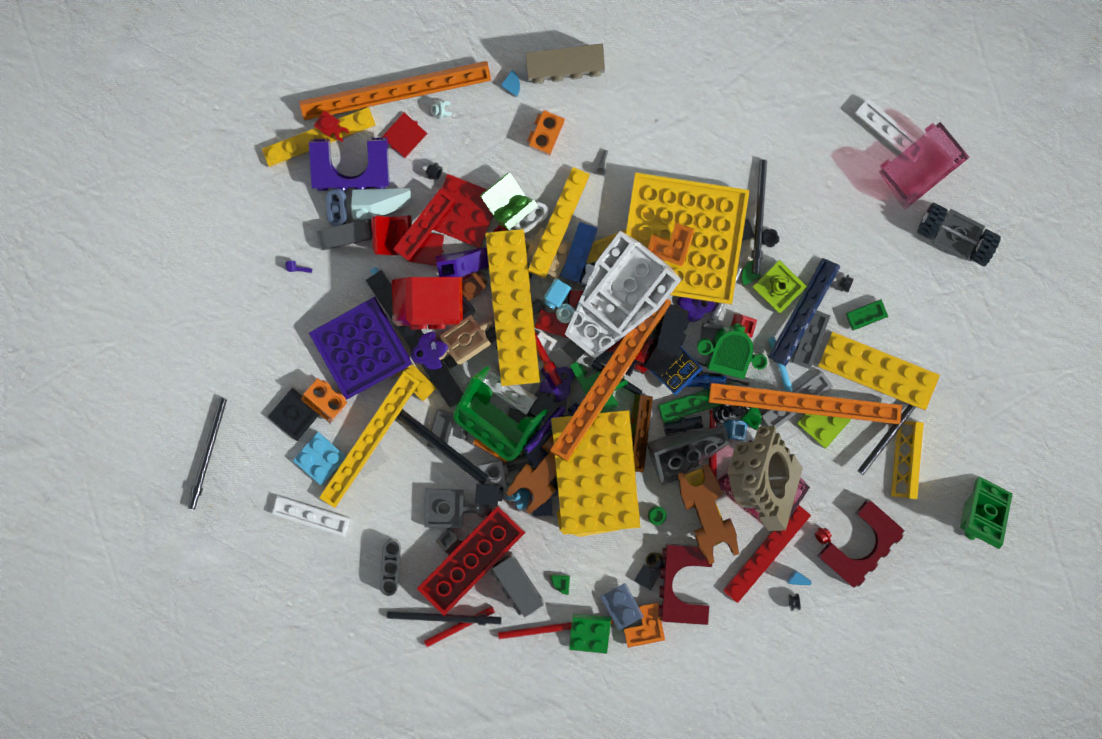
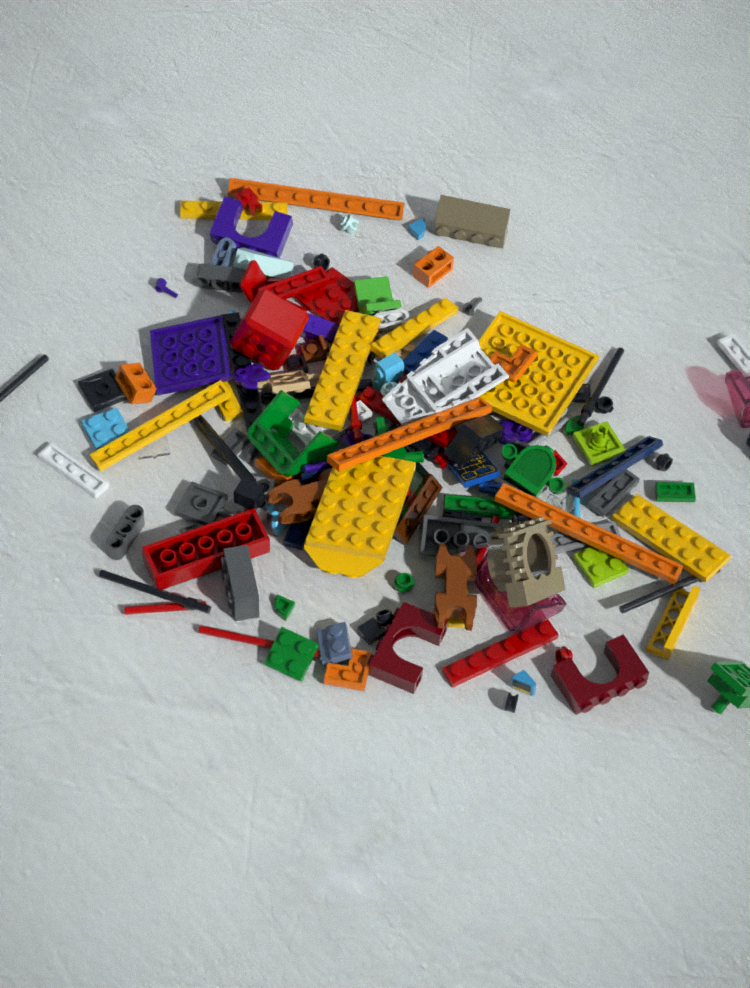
camera: 20 degrees right, 35 degrees down
(405, 135) = (308, 233): red piece -> none
(721, 414) = (502, 518): black plate -> none

